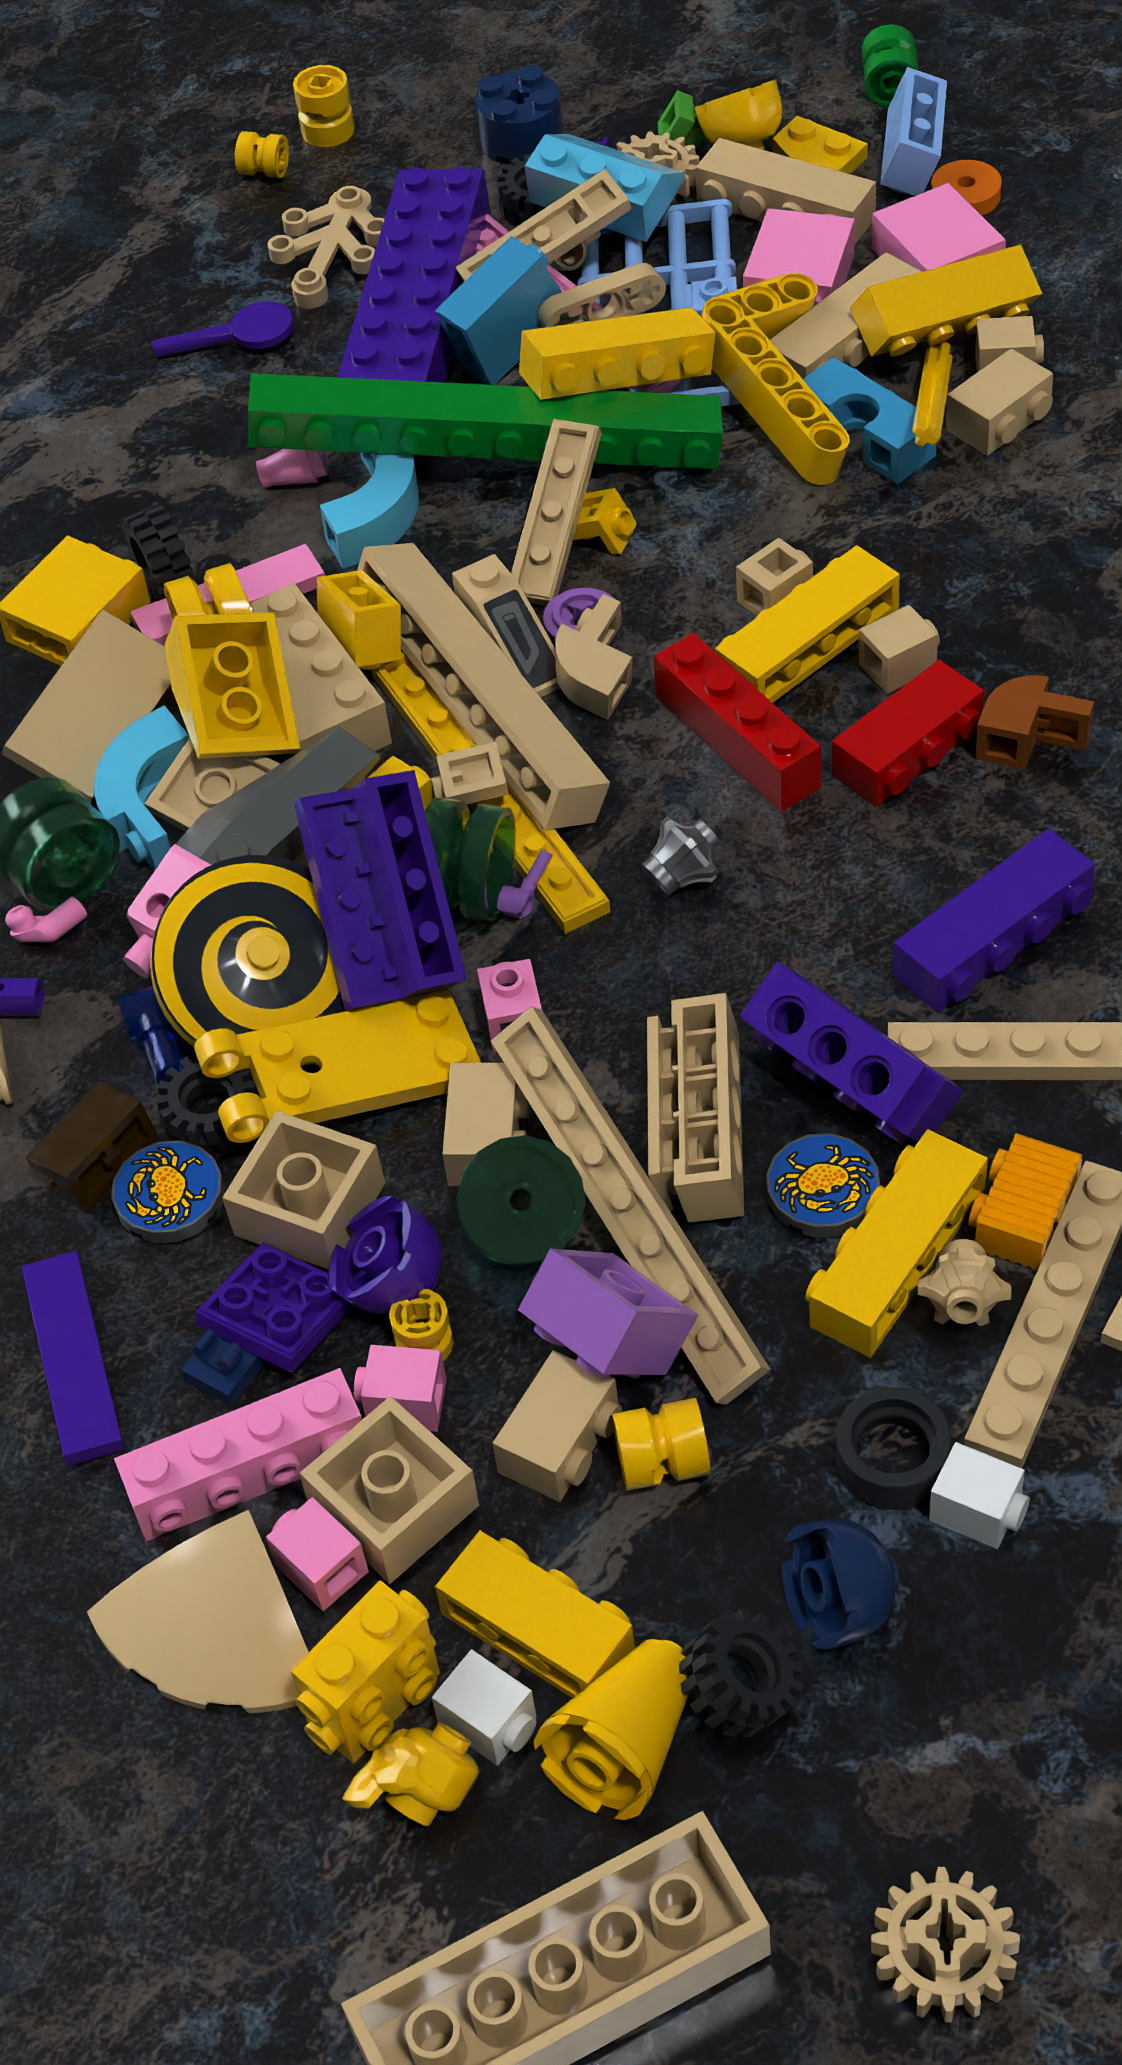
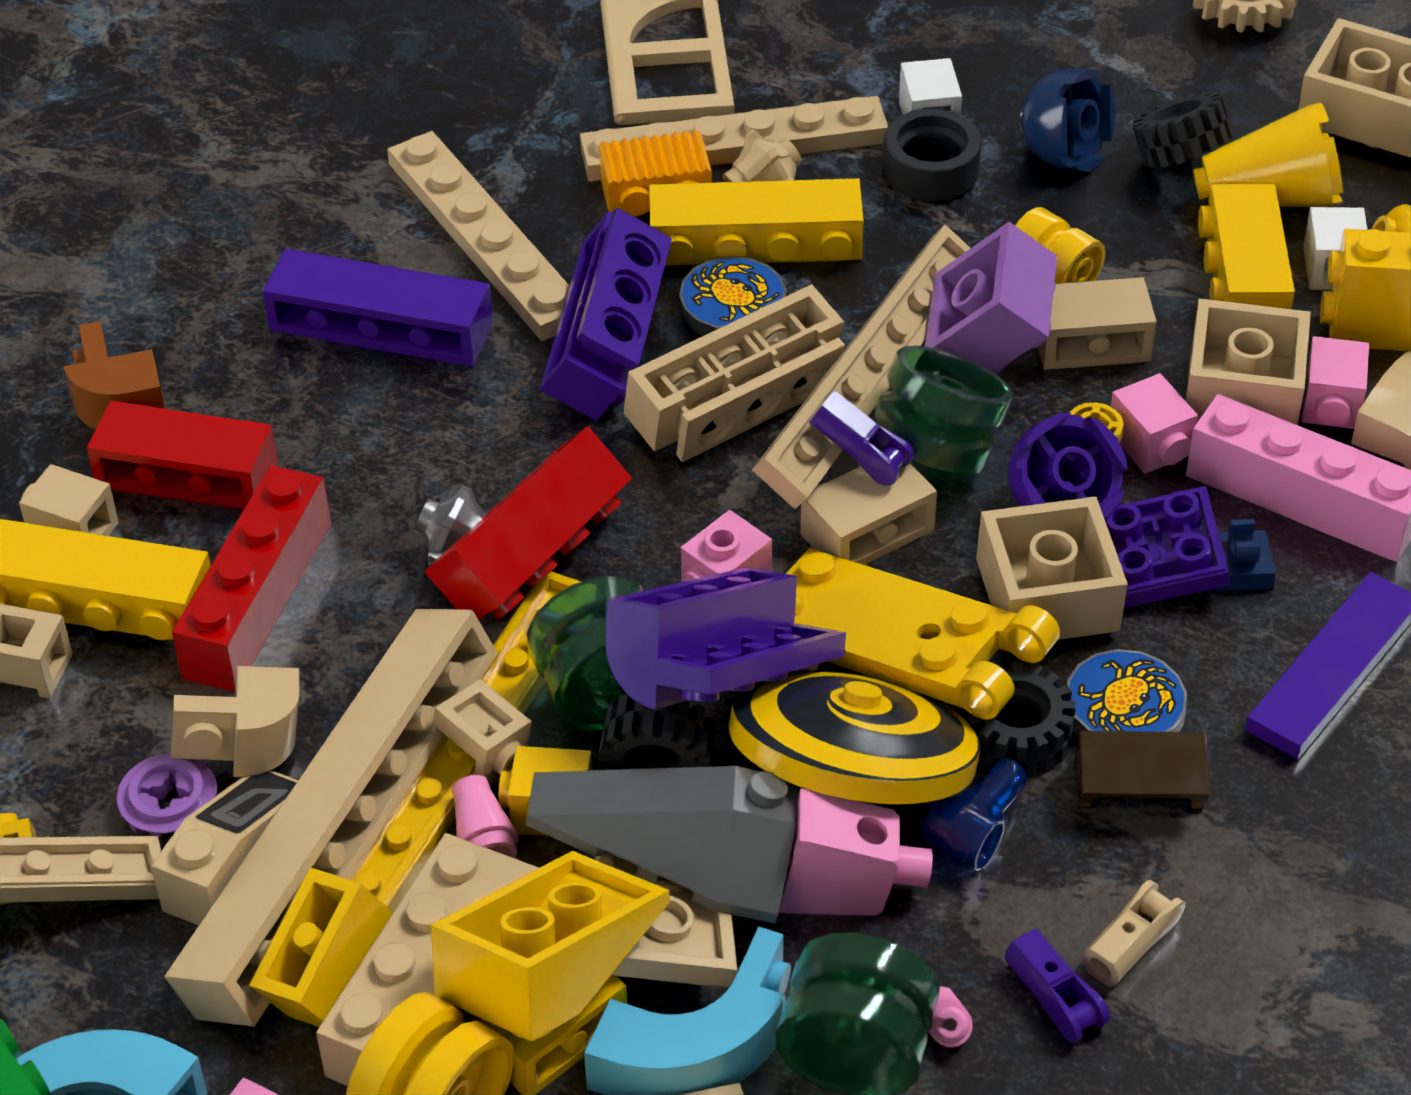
camera: 130 degrees left, 5 degrees down
(407, 748) = (481, 817): none -> bright pink cone
(514, 1104) = (863, 439): none -> dark purple bar
(632, 881) = (530, 526): none -> red brick

